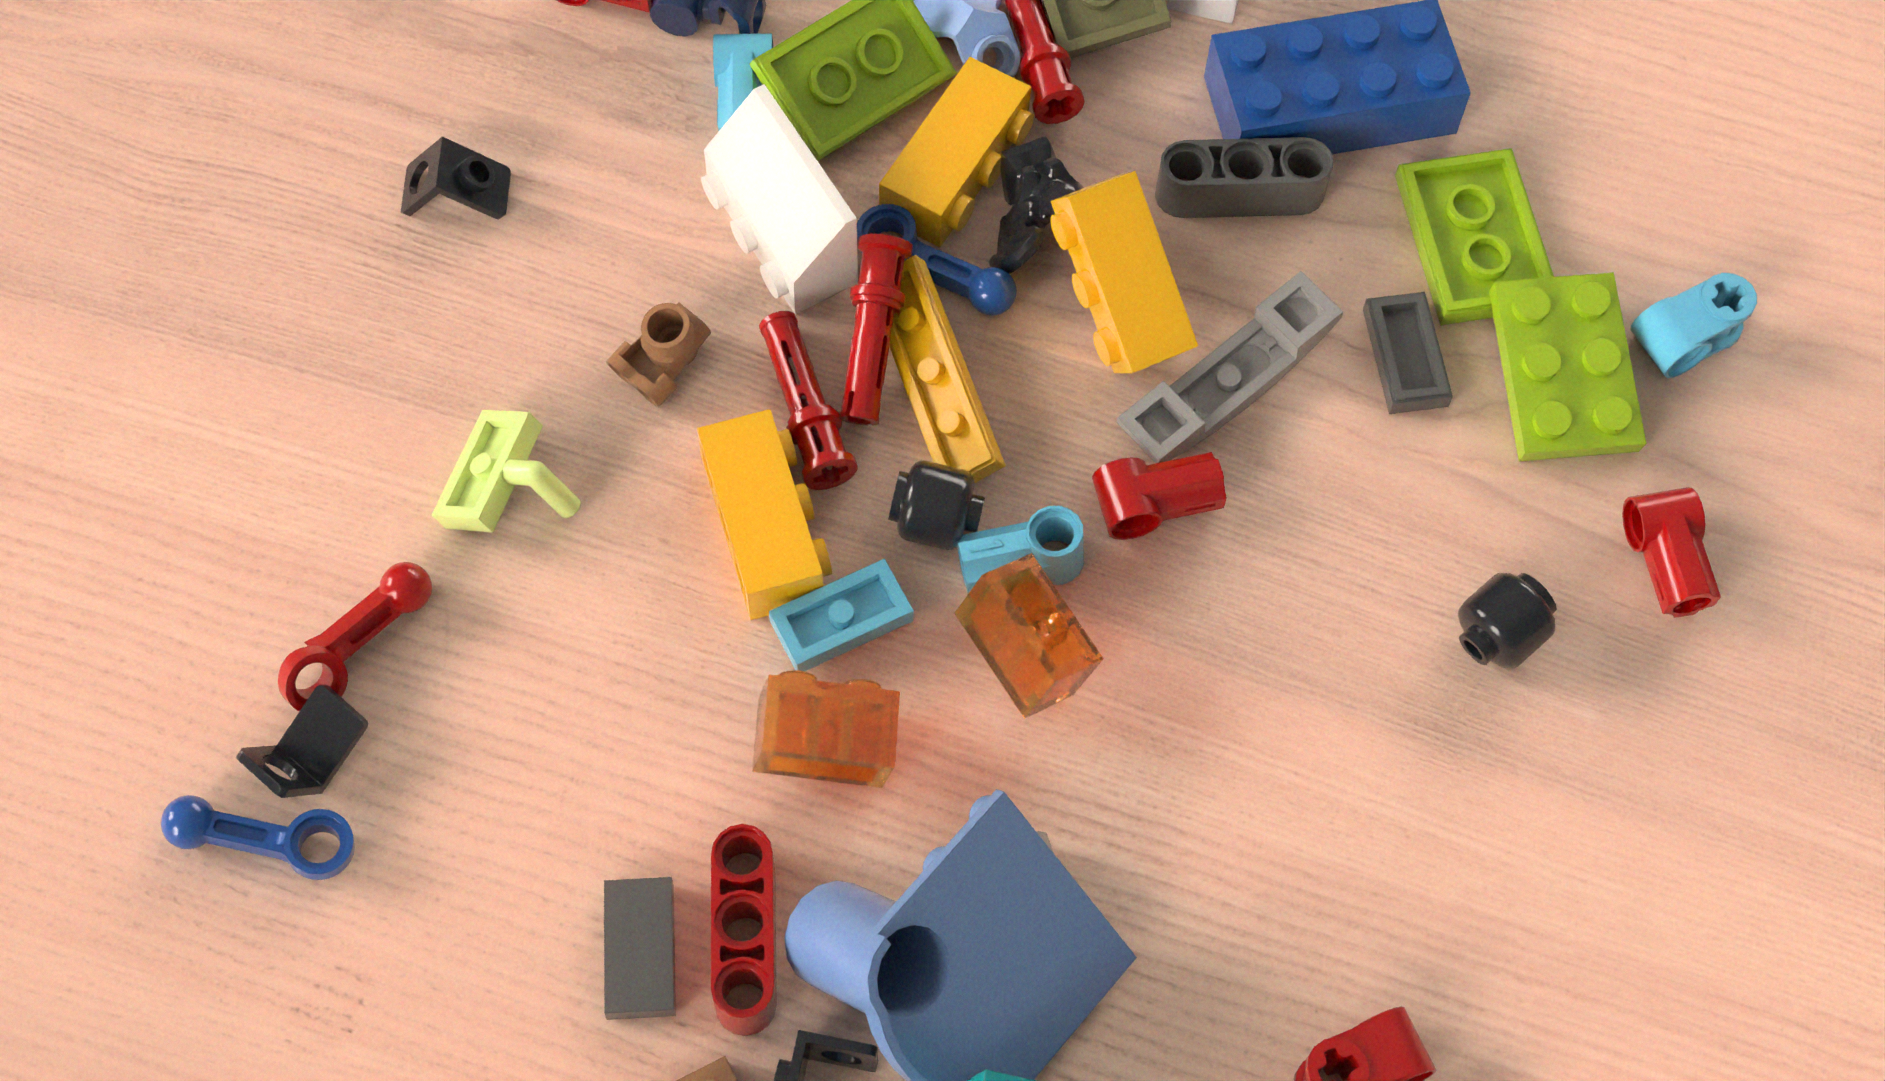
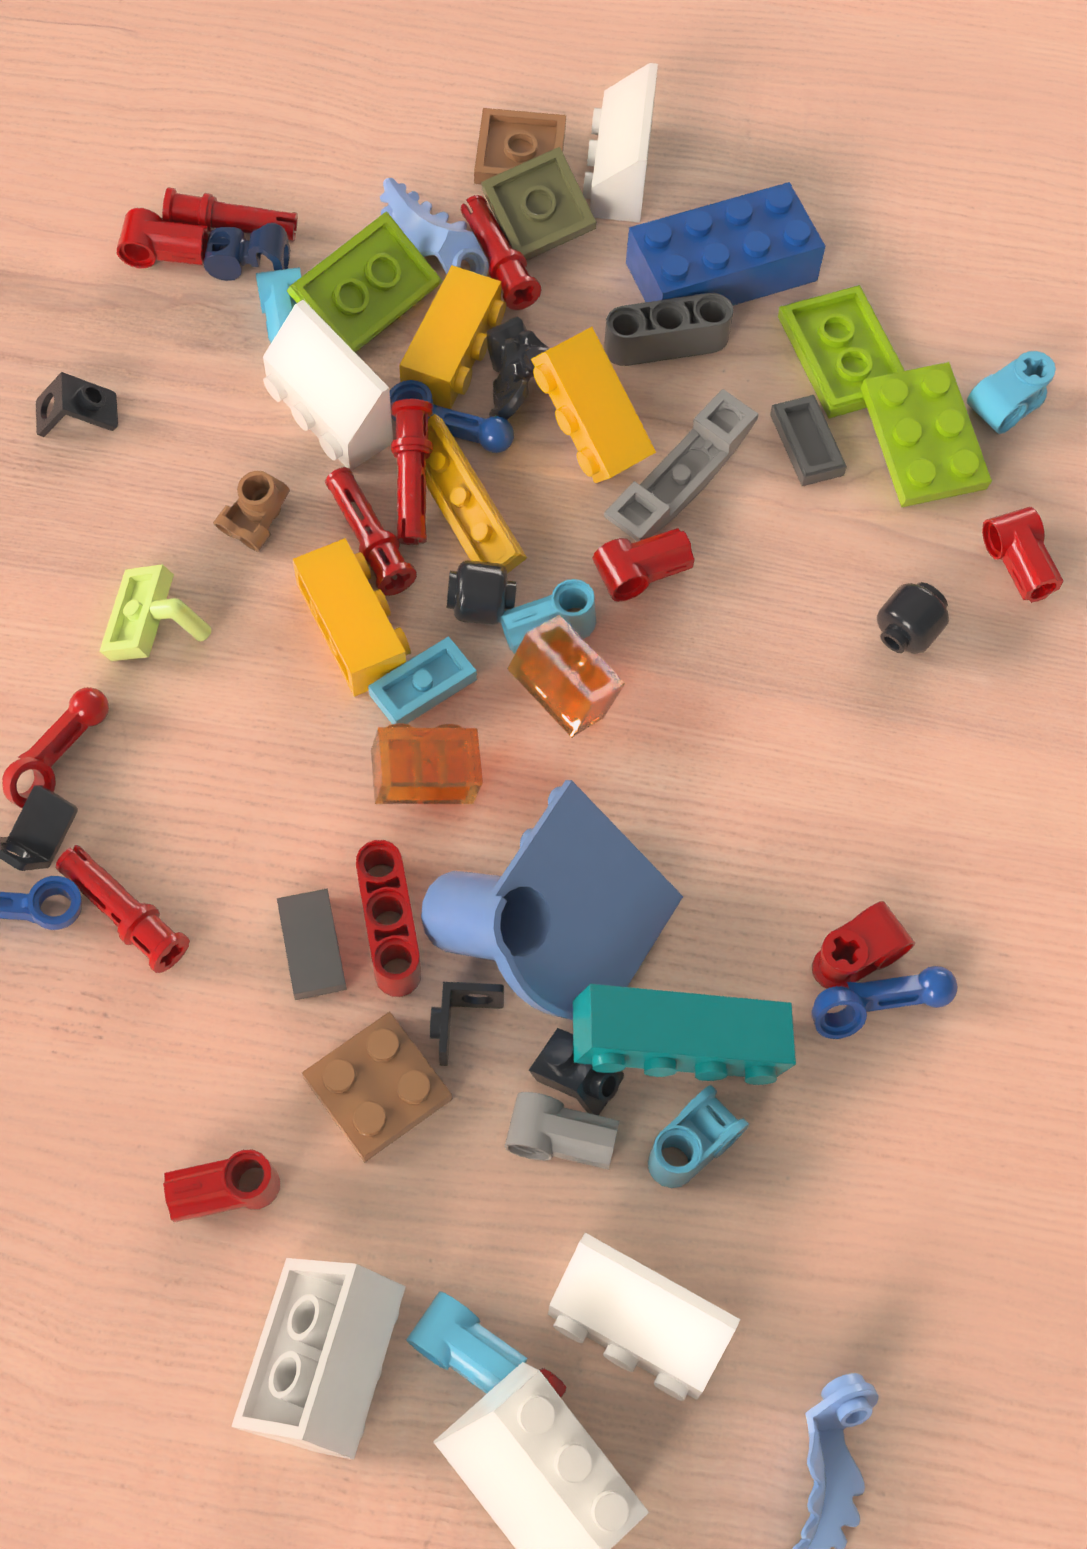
camera: 10 degrees left, 0 degrees up
(419, 885) = (136, 922): none -> red pin

